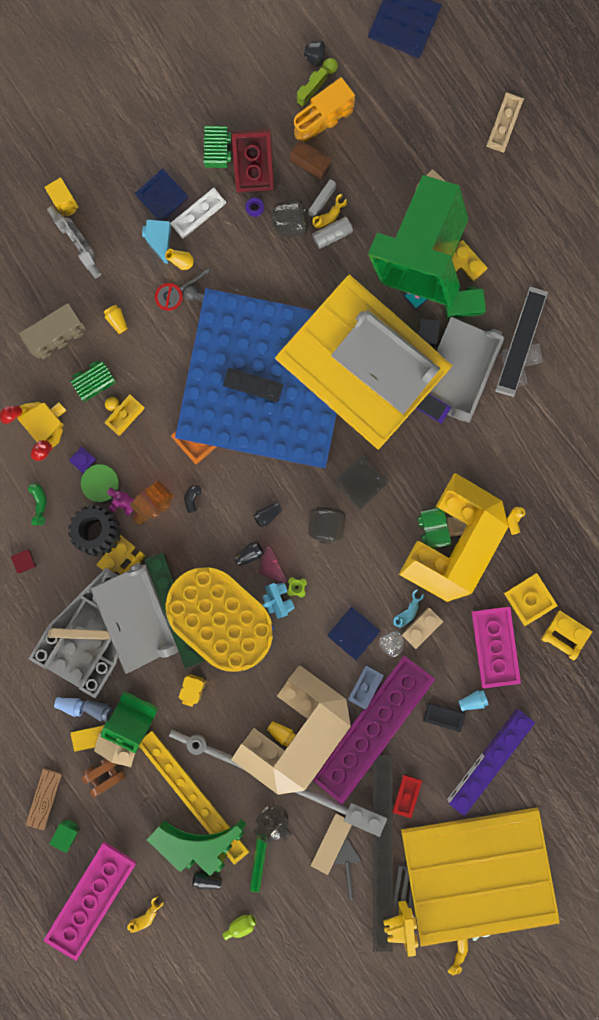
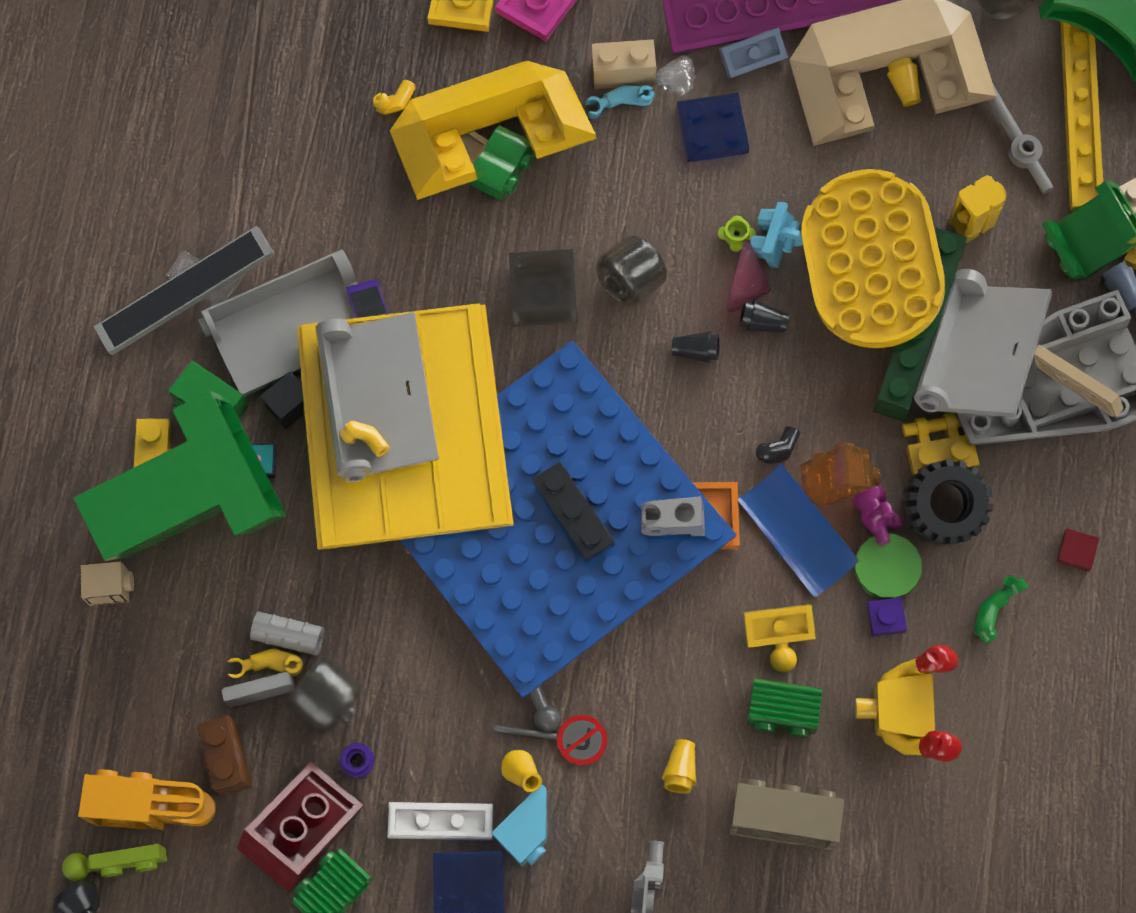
camera: 140 degrees left, 15 degrees down
(152, 465) = (798, 531): none -> blue sticker
(205, 417) = (673, 517): none -> light grey leg
(371, 338) = (356, 430): none -> yellow arm

